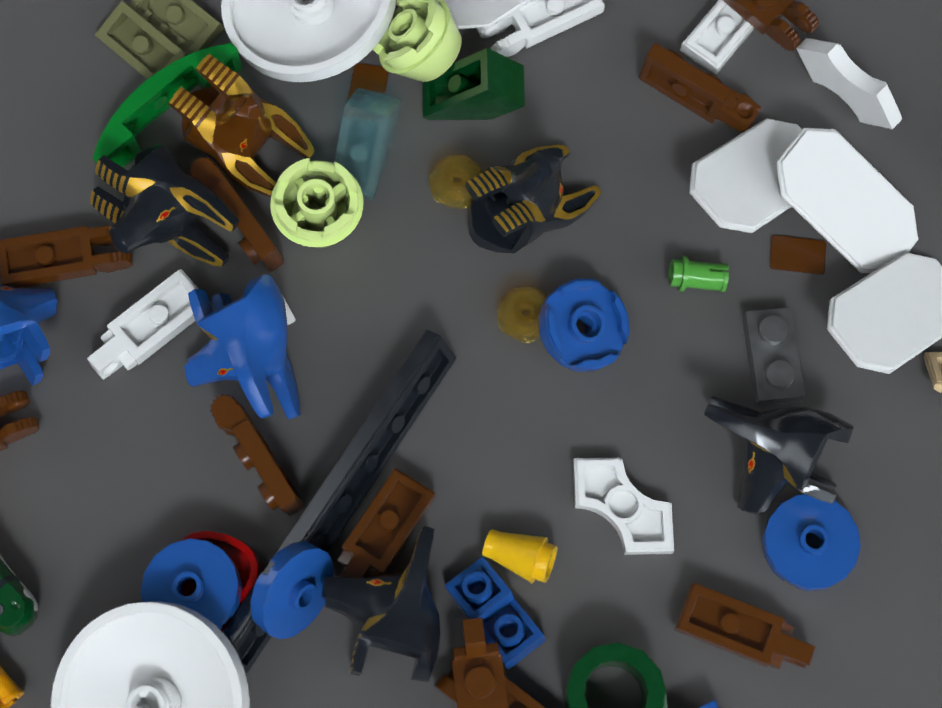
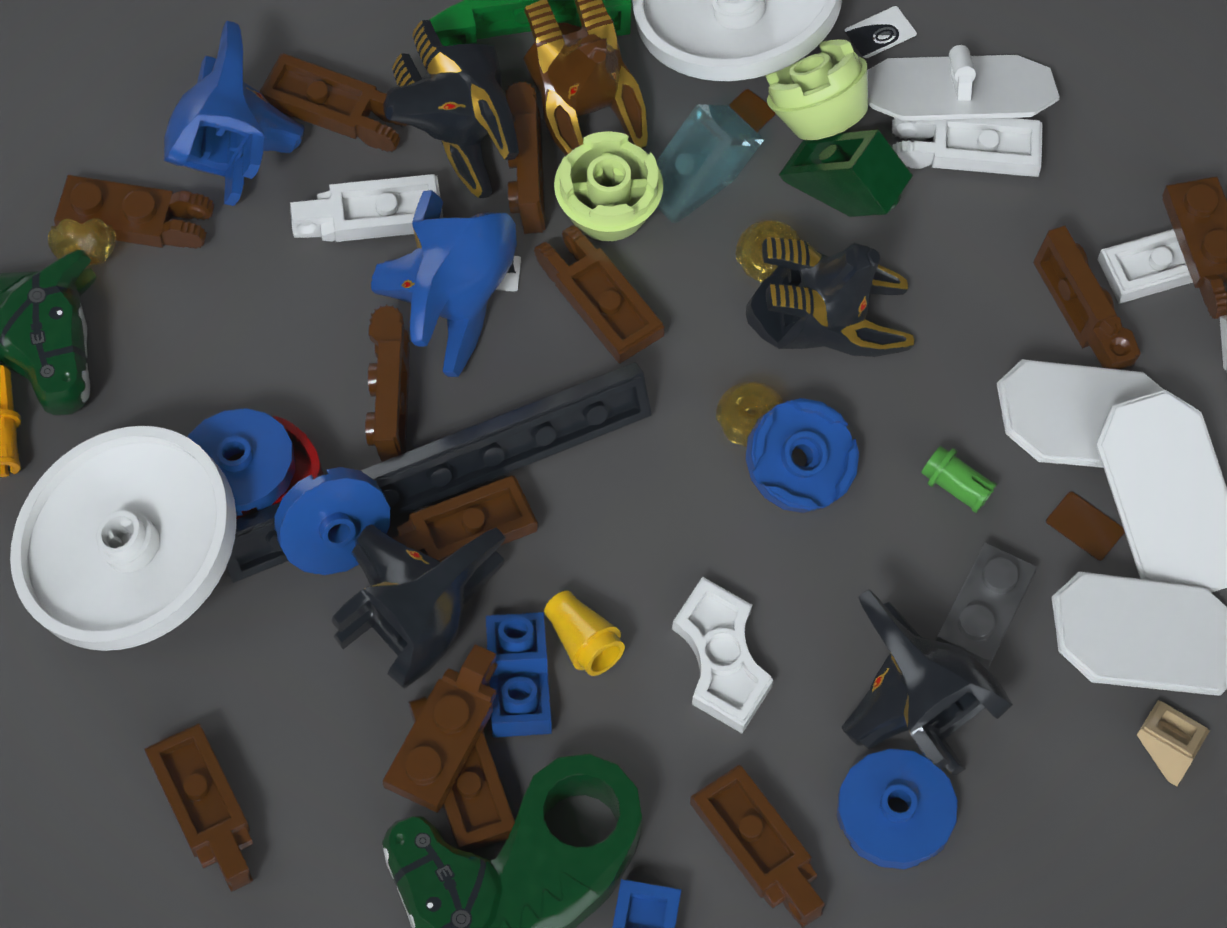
camera: 35 degrees right, 10 degrees down
(361, 289) = (601, 296): none -> reddish brown hinge

